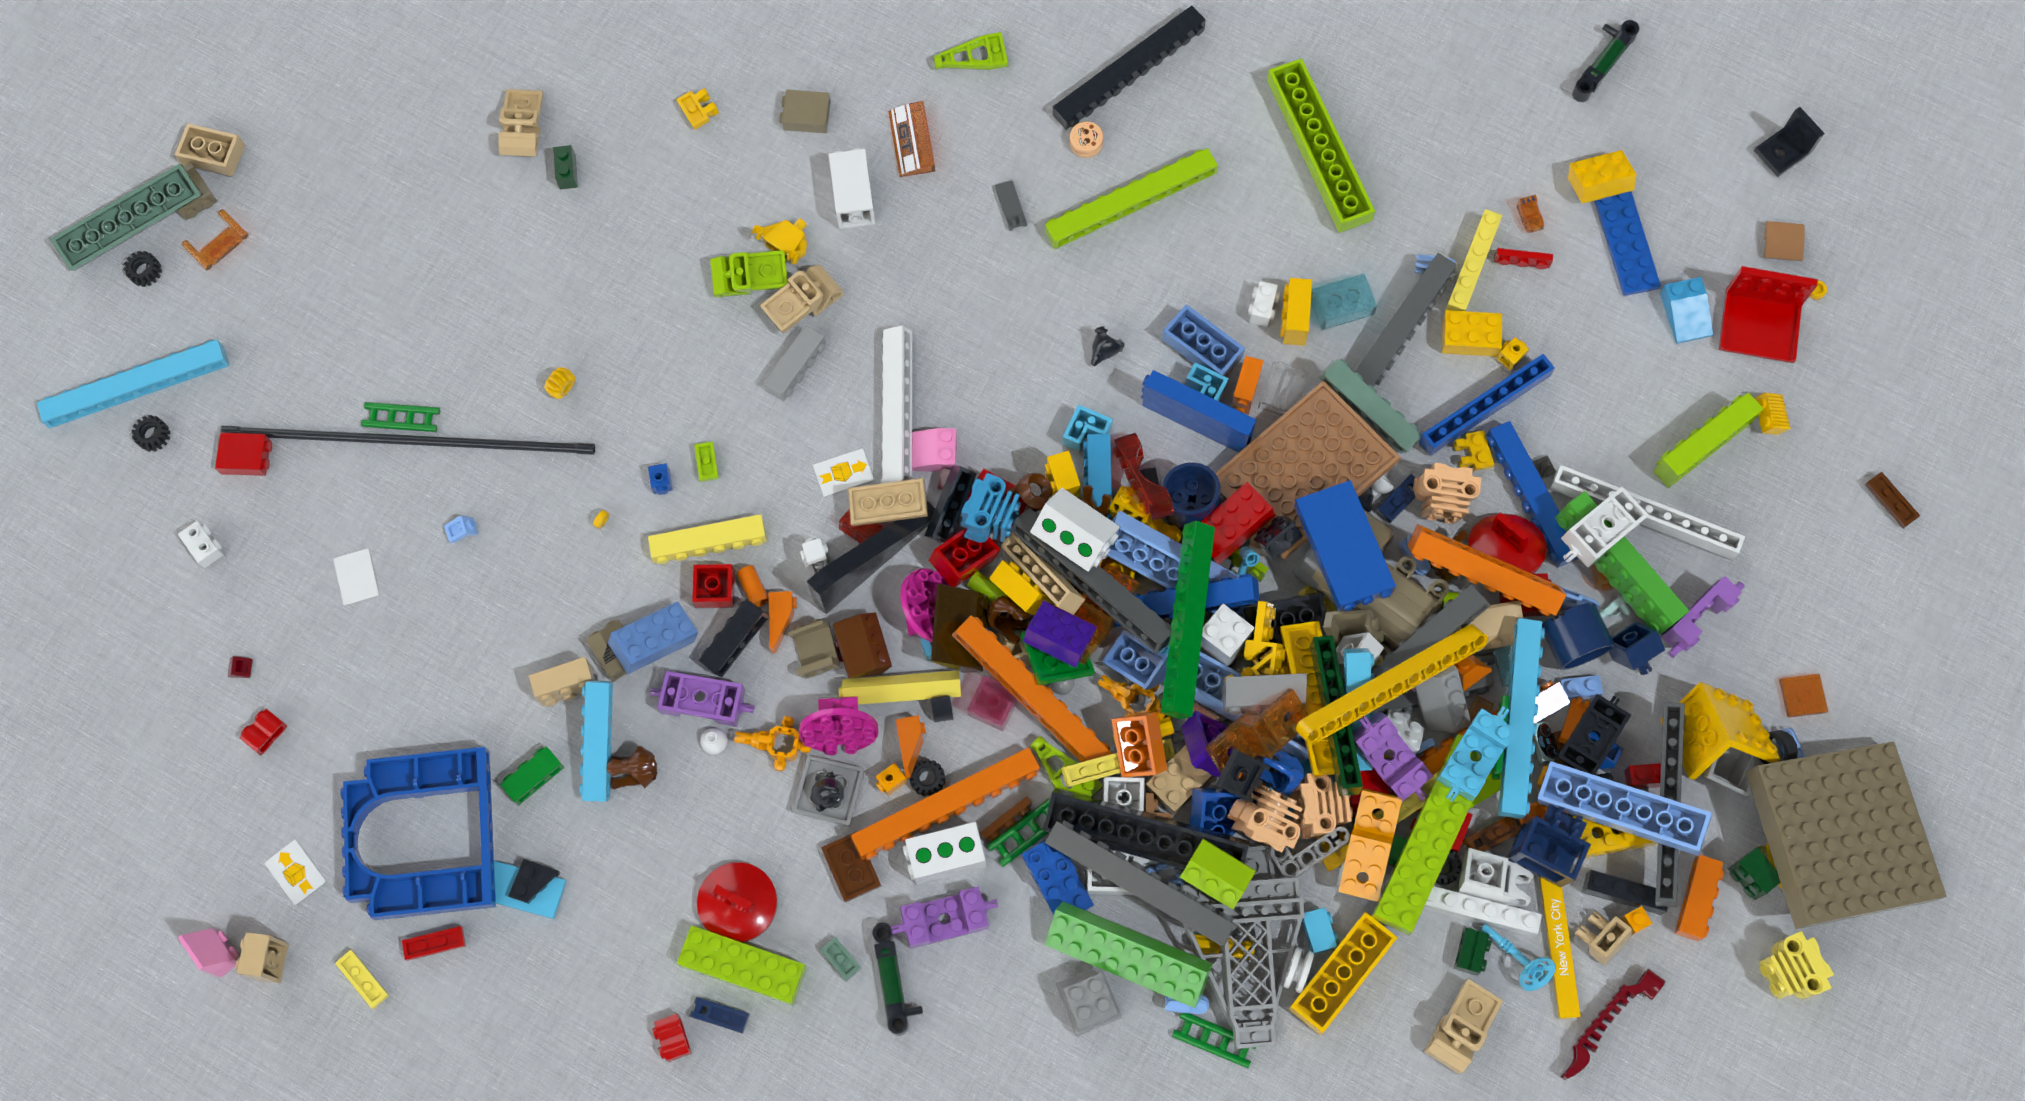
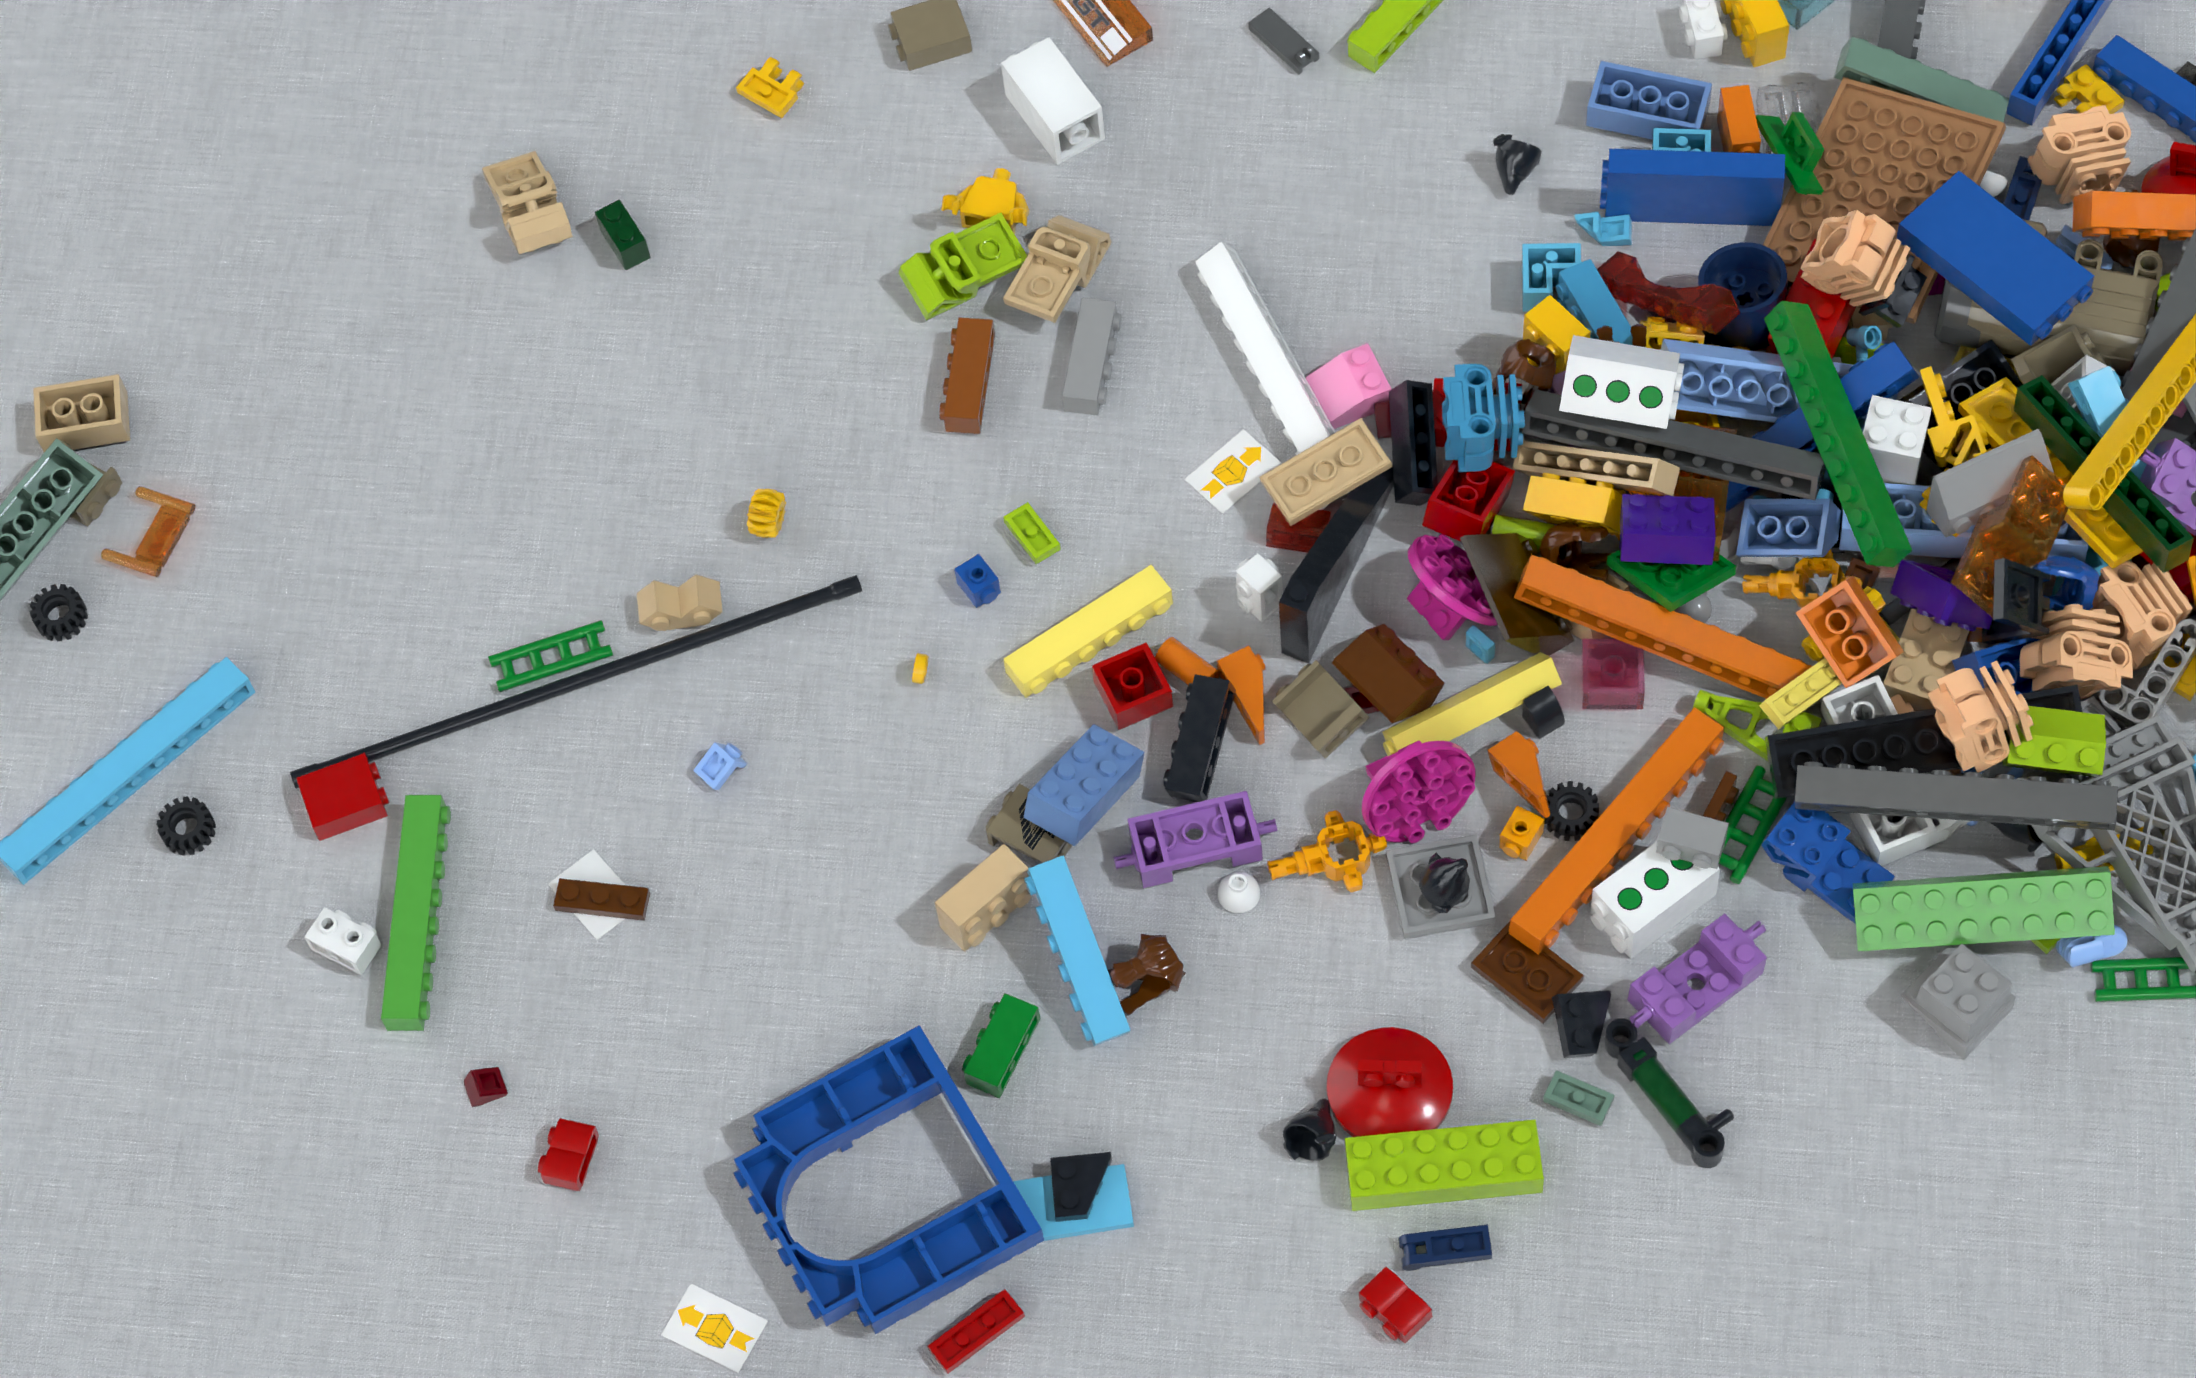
camera: 20 degrees left, 10 degrees down
(249, 544) = (414, 913): none -> bright green brick
(356, 582) = (601, 899): none -> reddish brown plate
(486, 419) = (673, 607): none -> tan brick
(678, 910) = (1310, 1133): none -> black hat
(718, 345) = (968, 375): none -> dark orange brick
(865, 912) = (1581, 1021): none -> black wing
(975, 836) = (1692, 838): none -> light grey brick
(1139, 413) = (1607, 230): none -> medium azure slope
(1173, 844) = (1978, 716): none -> light nougat piece
(1257, 511) = (1855, 258): none -> light nougat piece
(1269, 415) = (1800, 148): none -> green bracket

